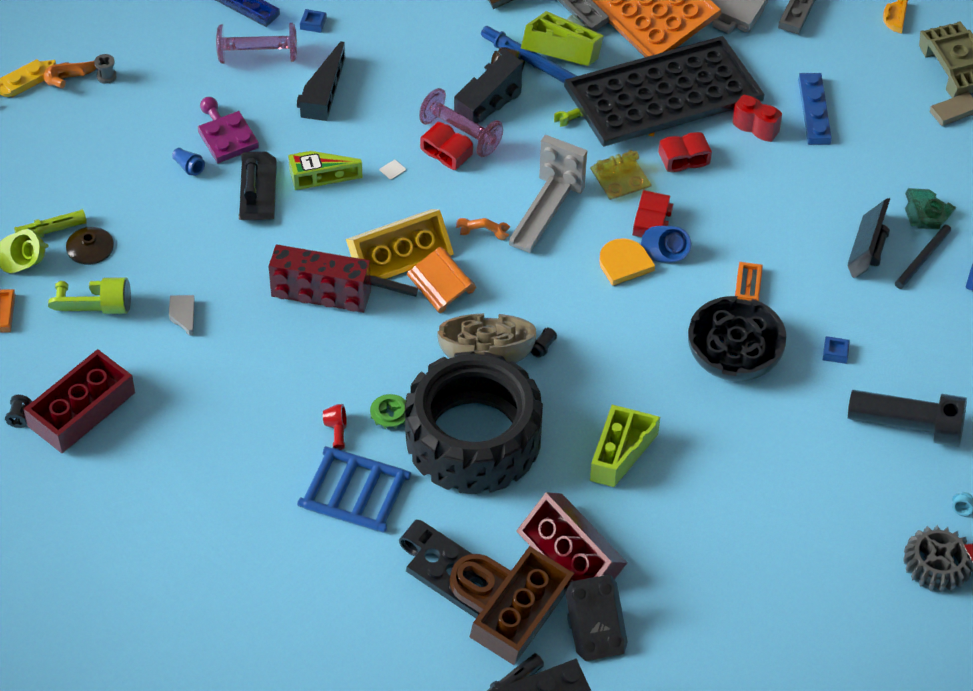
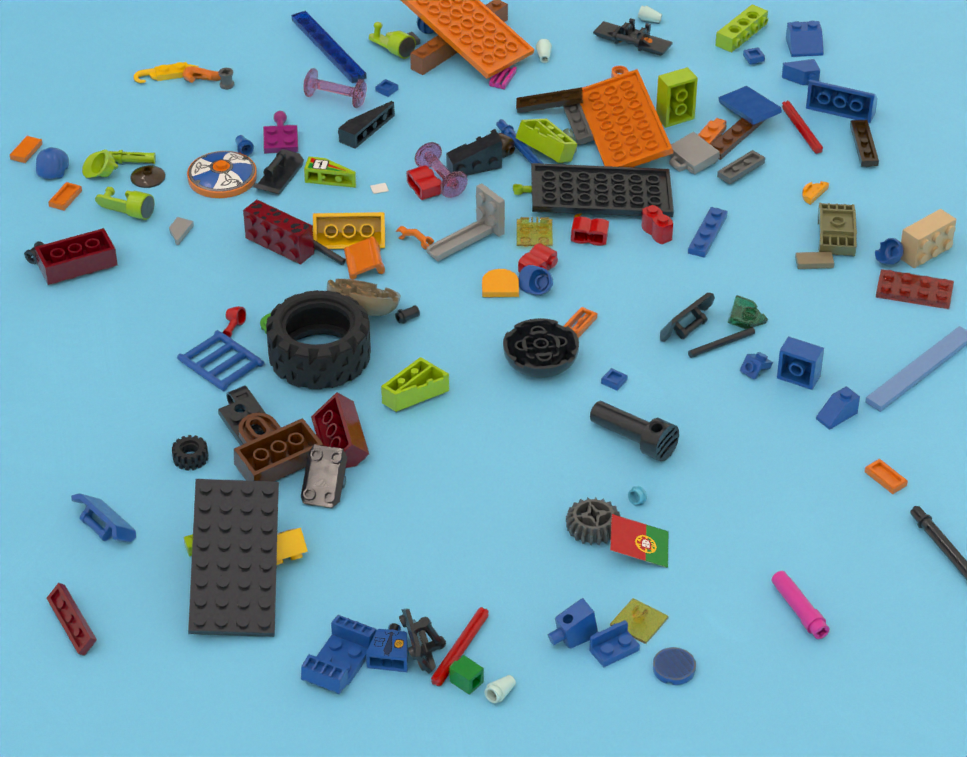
camera: 25 degrees right, 10 degrees down
(185, 212) = (222, 174): none -> dish
(400, 627) = (192, 460): none -> black tyre

